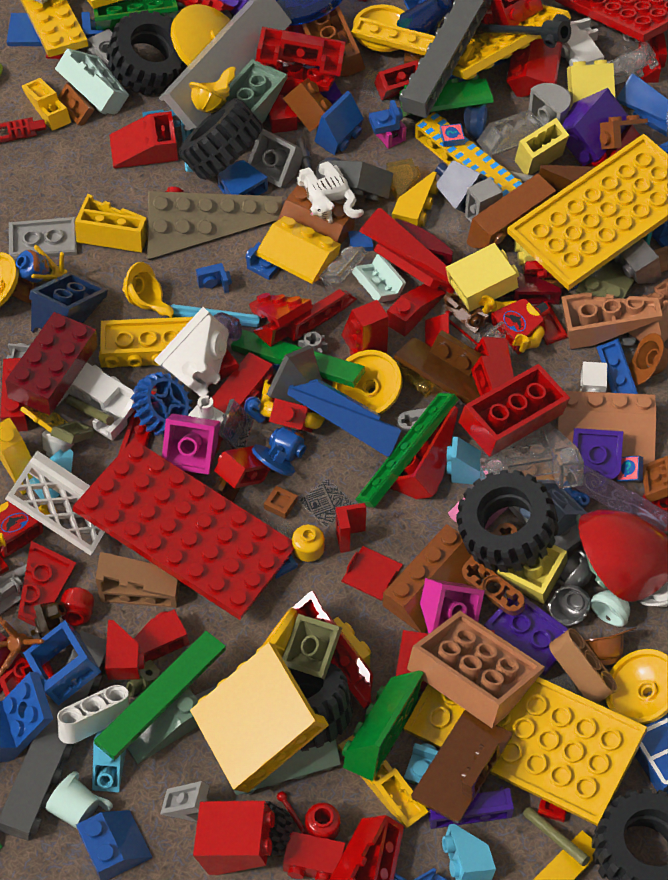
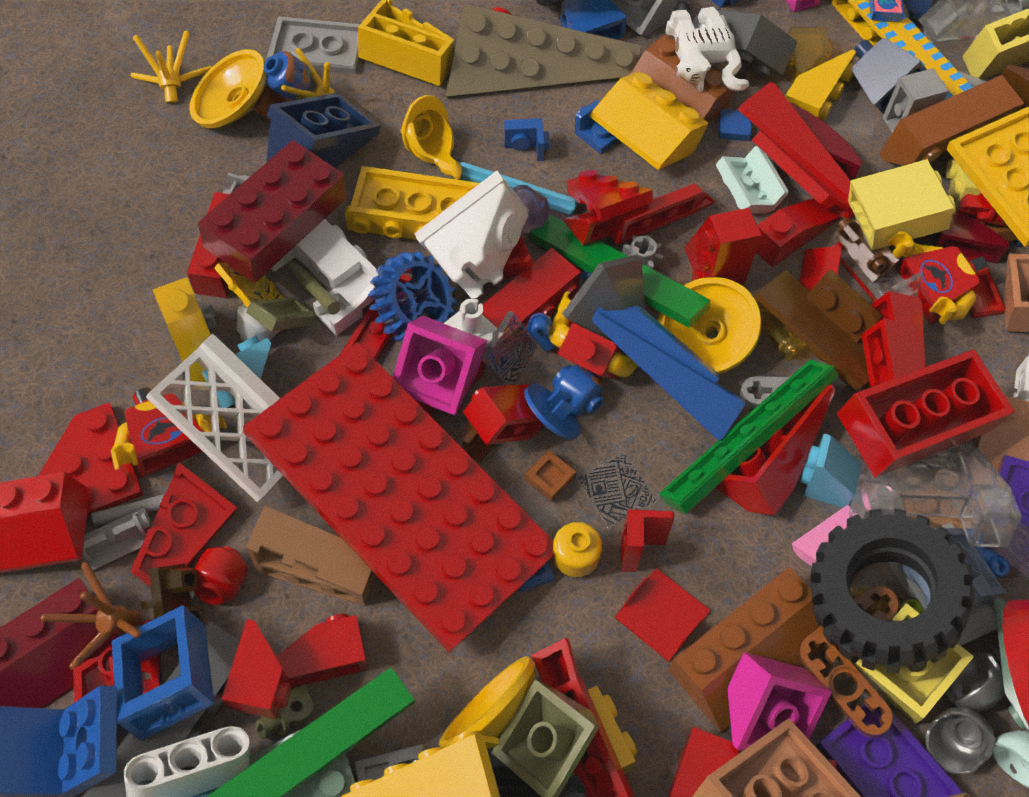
camera: 10 degrees right, 5 degrees up
(342, 267) = (704, 155): clear bracket -> none

